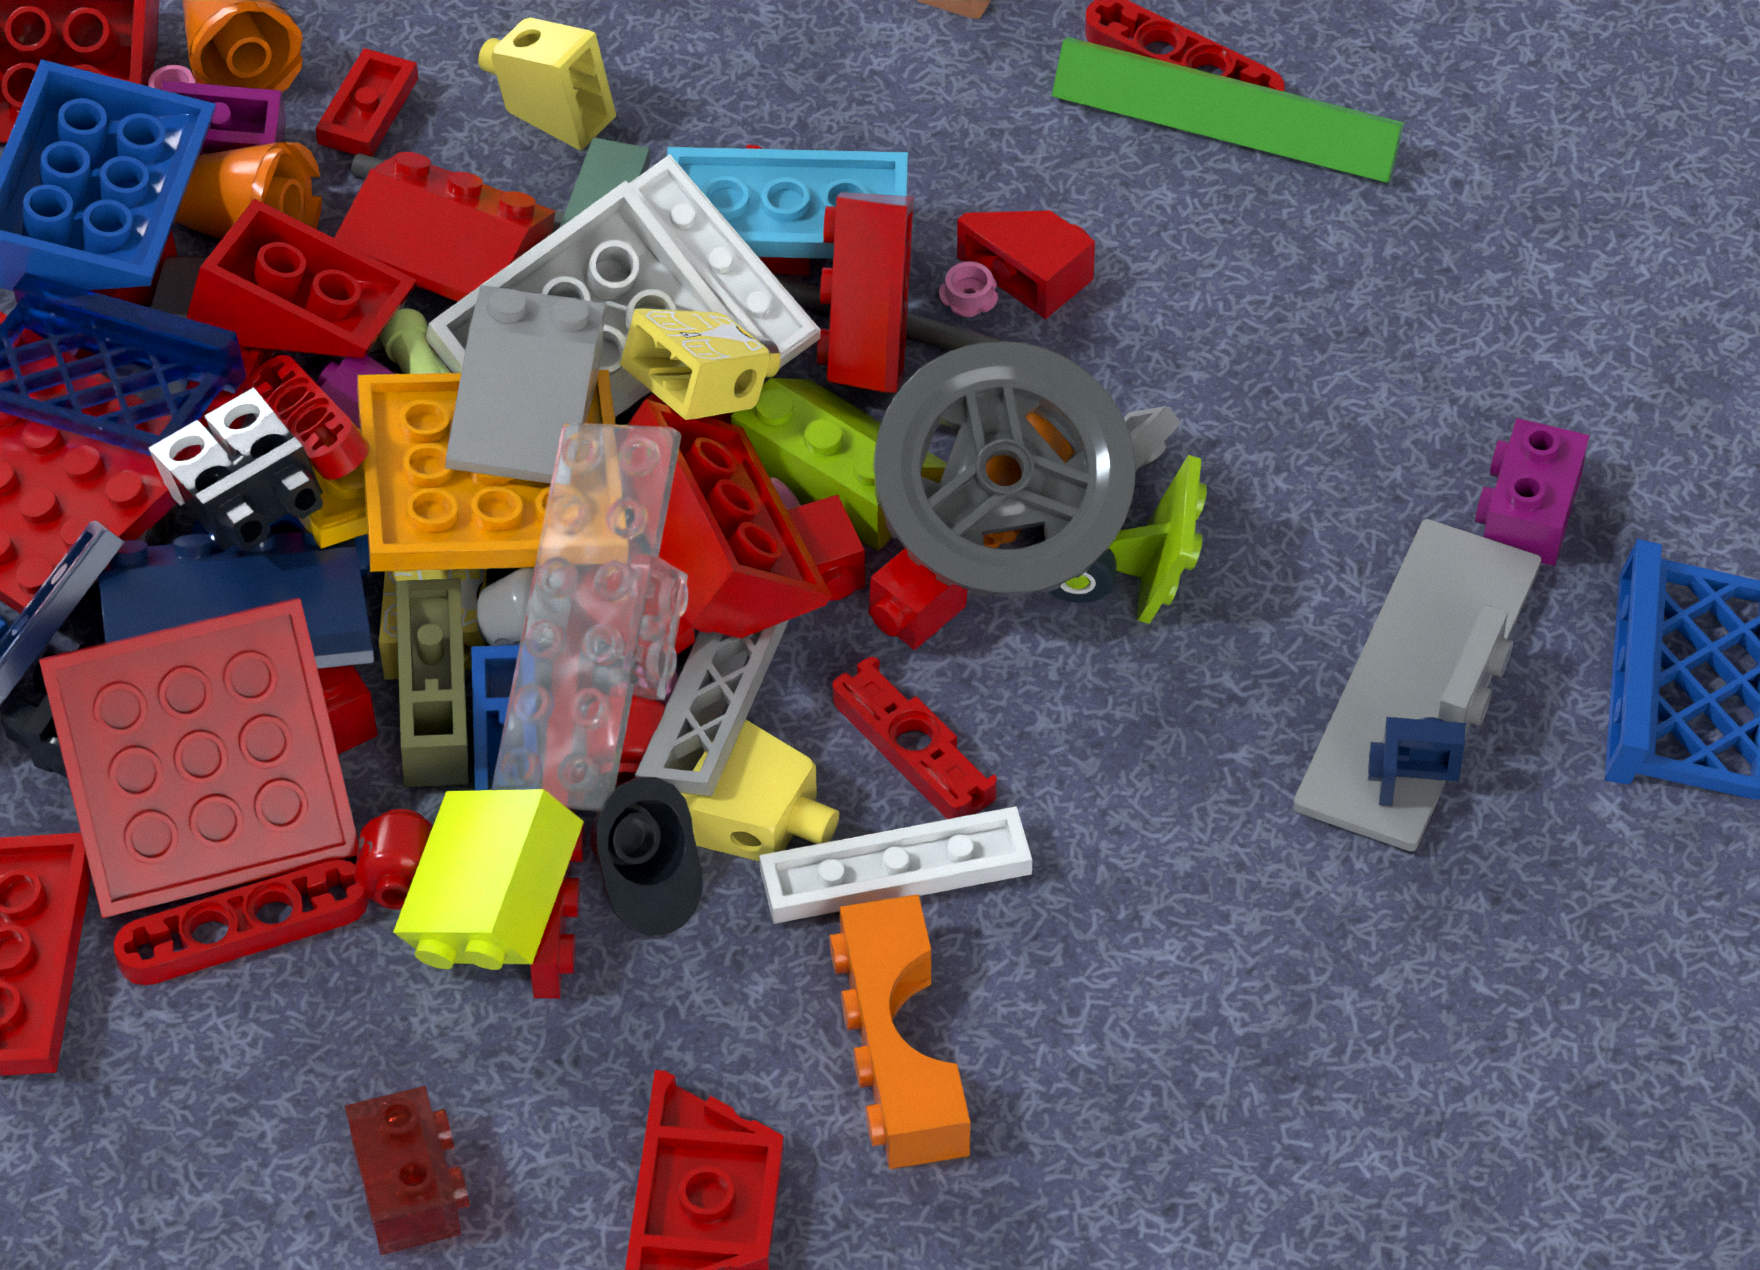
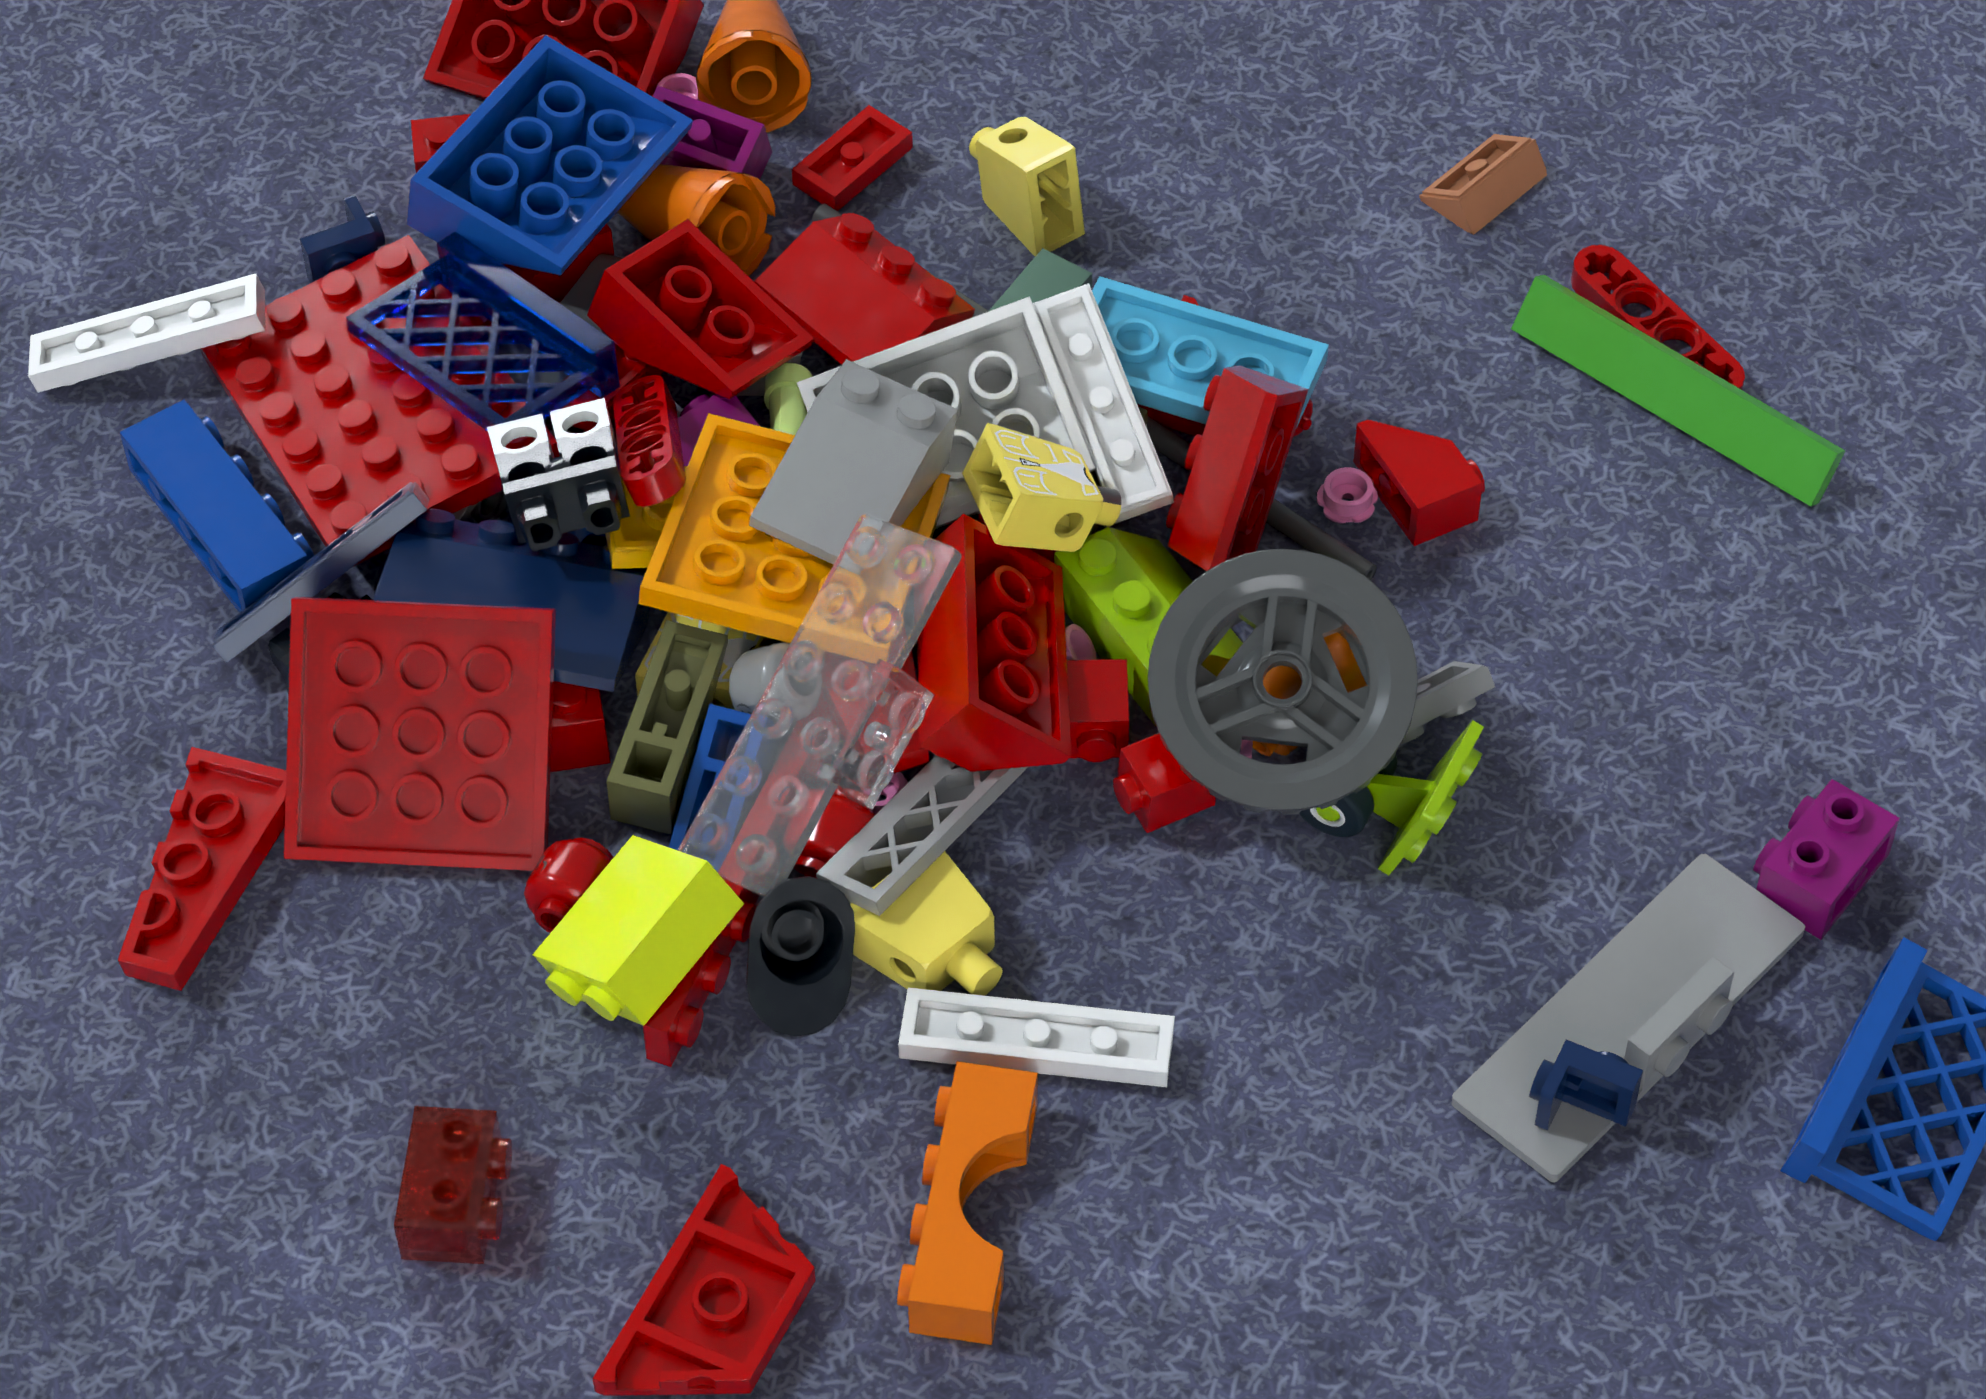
camera: 20 degrees right, 0 degrees up
(238, 912) = (409, 892): red beam -> none
(935, 771) = (1116, 956): red piece -> none

